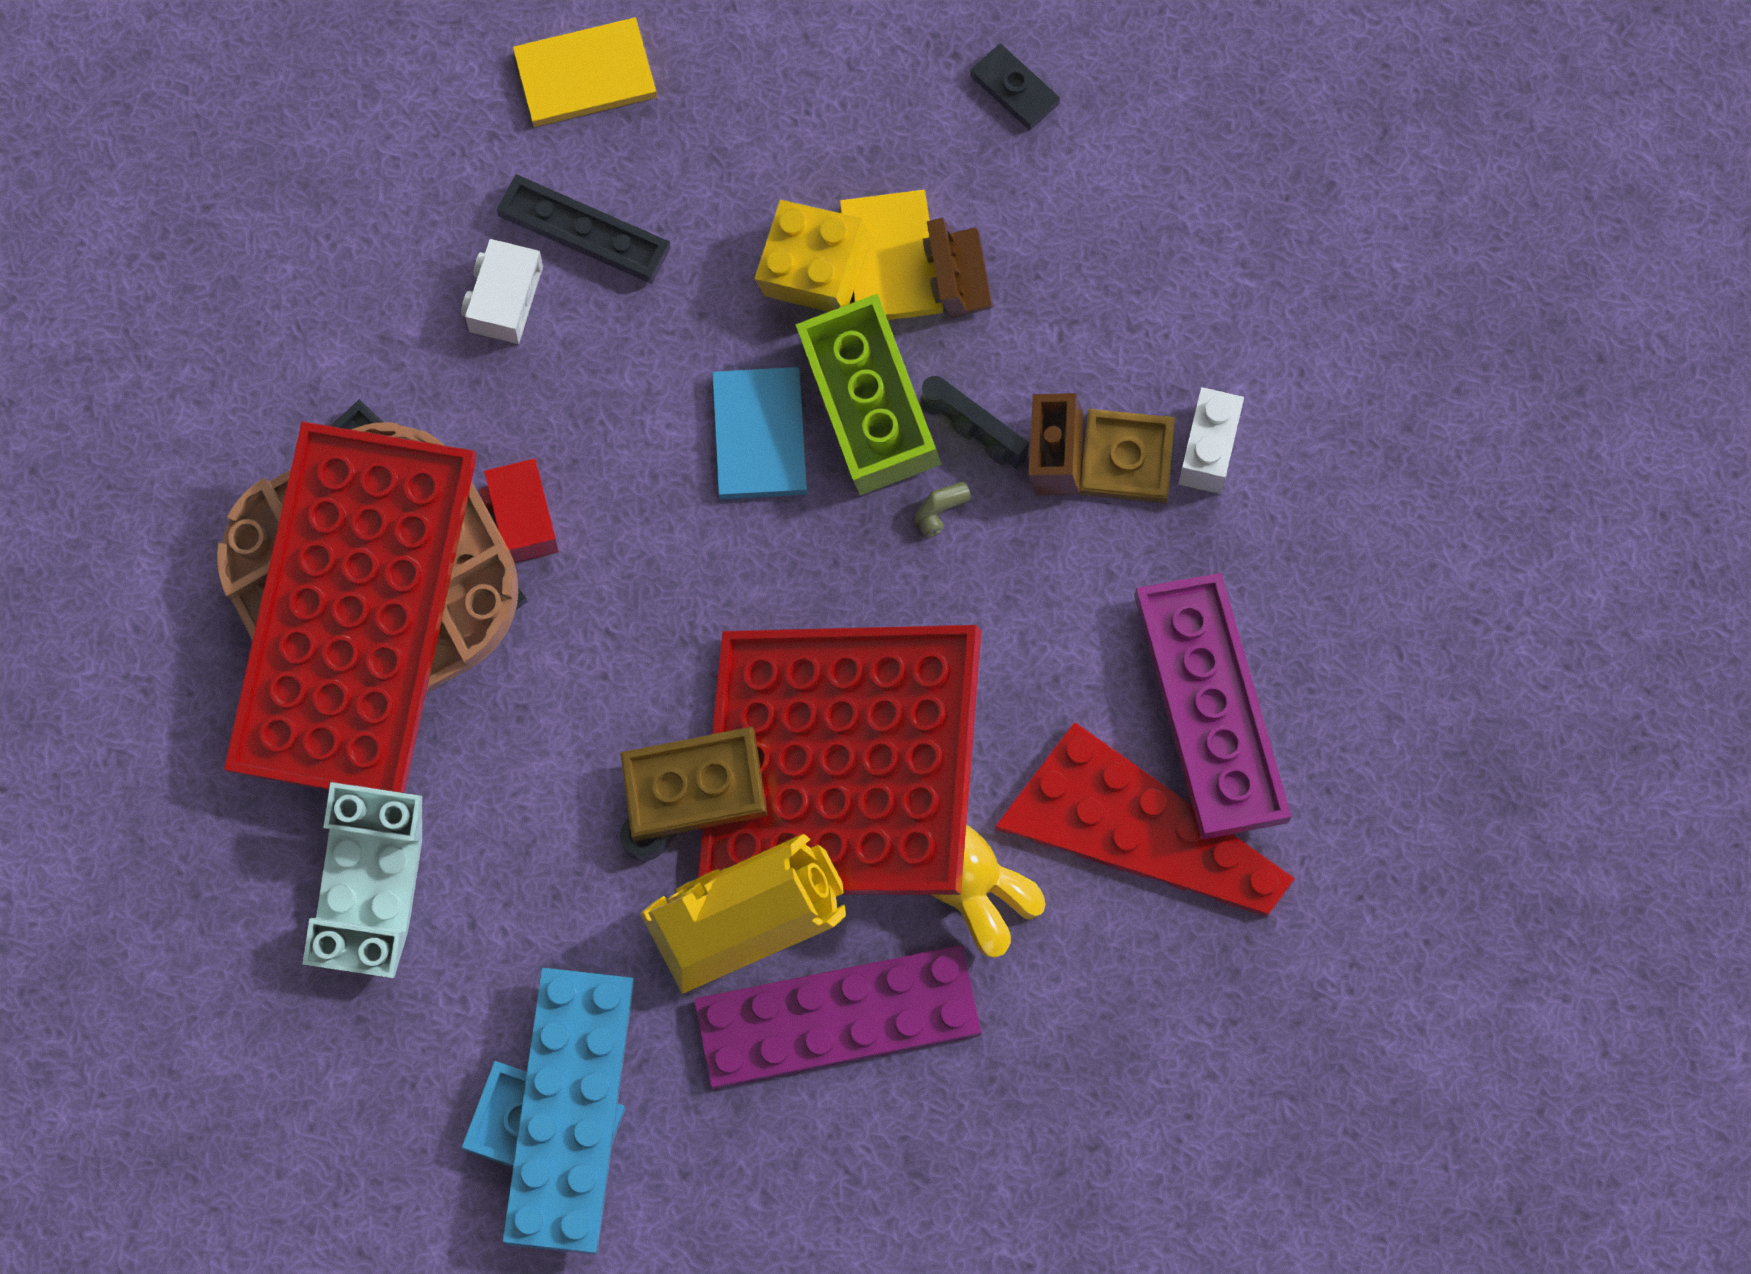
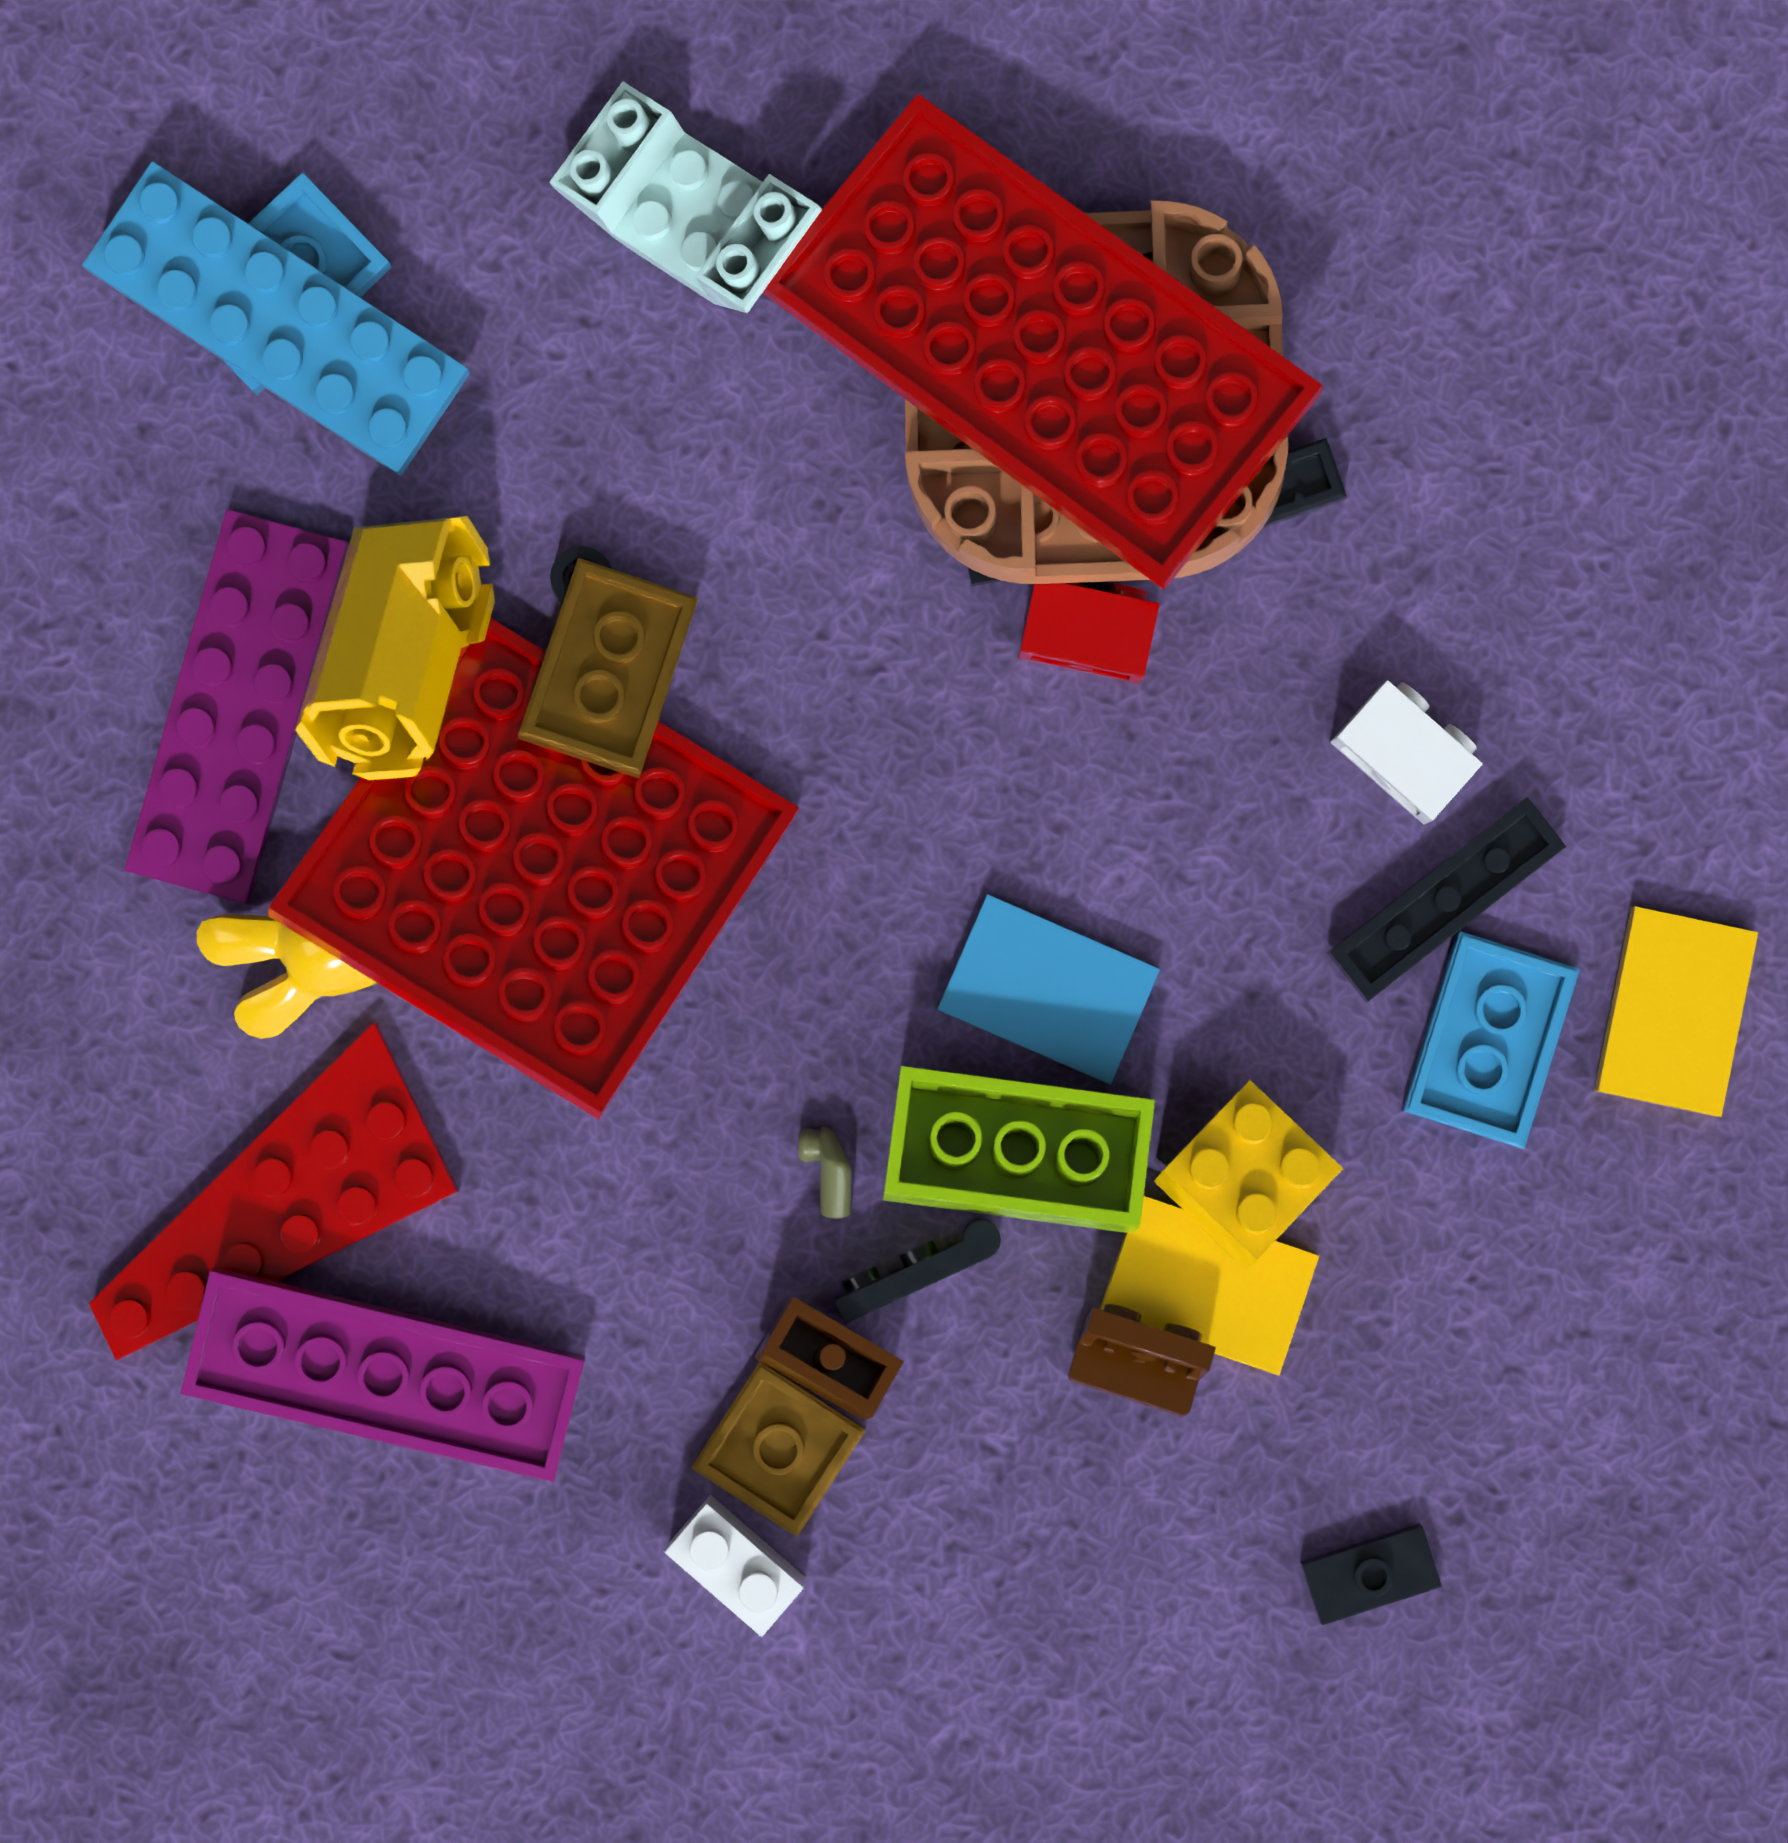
camera: 115 degrees right, 15 degrees up
(657, 167) = (1490, 1040): none -> dark azure tile

